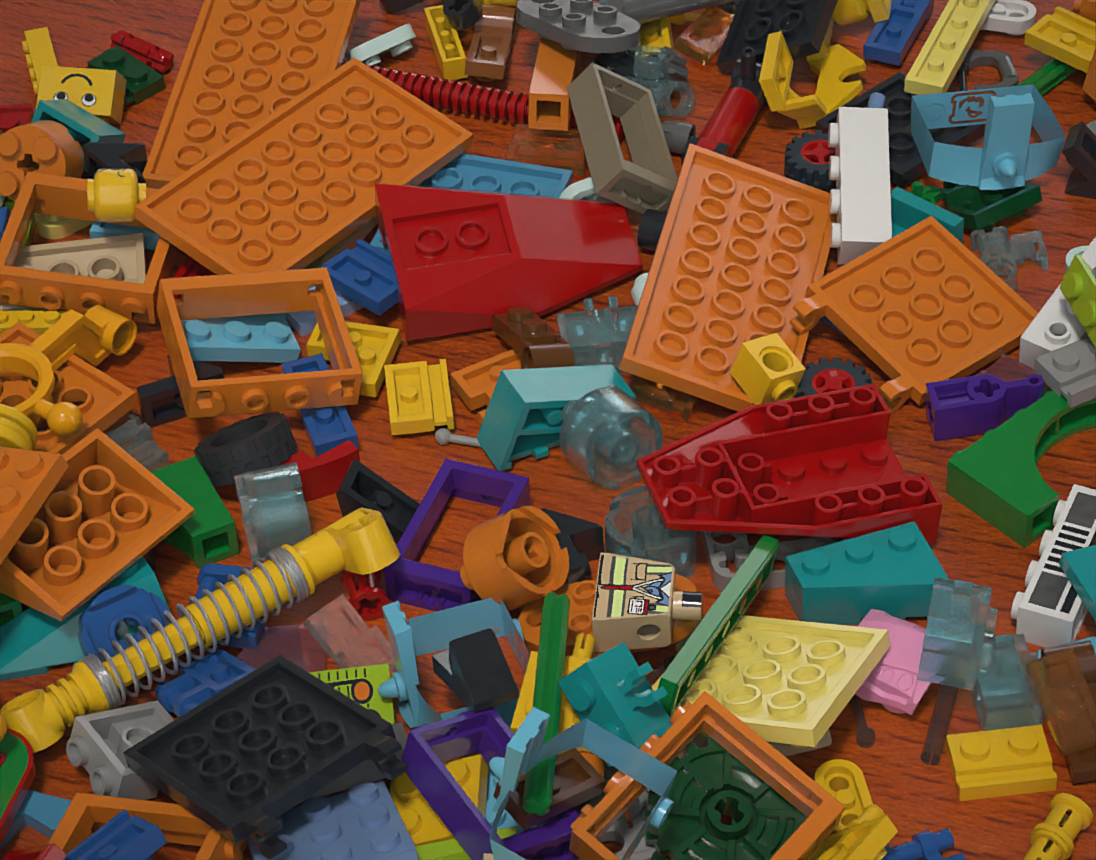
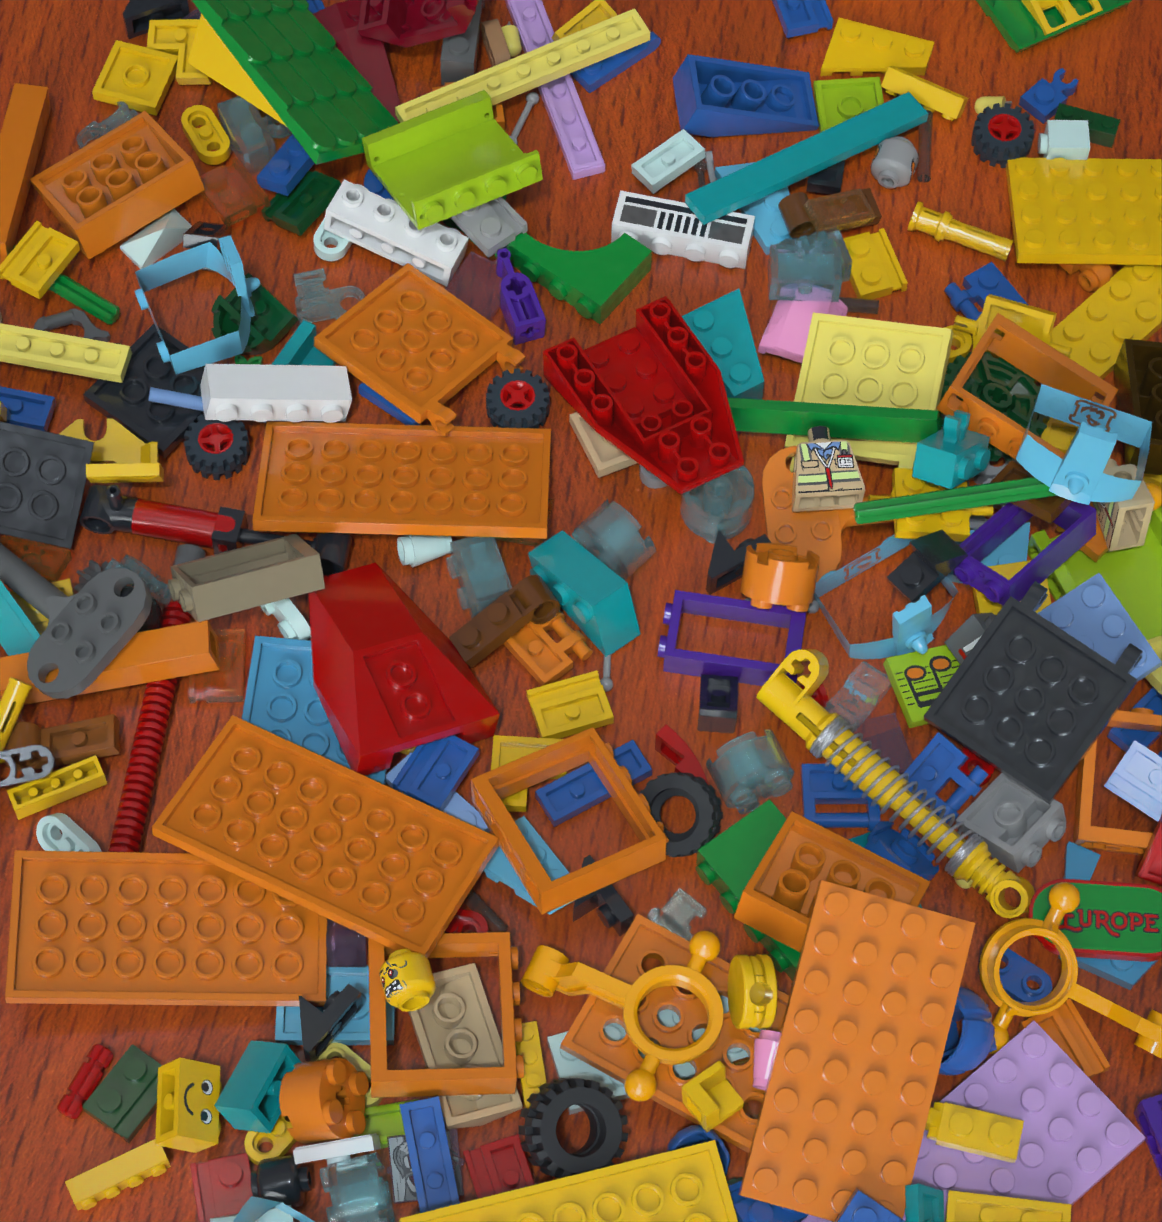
camera: 105 degrees left, 20 degrees up
(767, 370) = (527, 433): yellow brick -> none

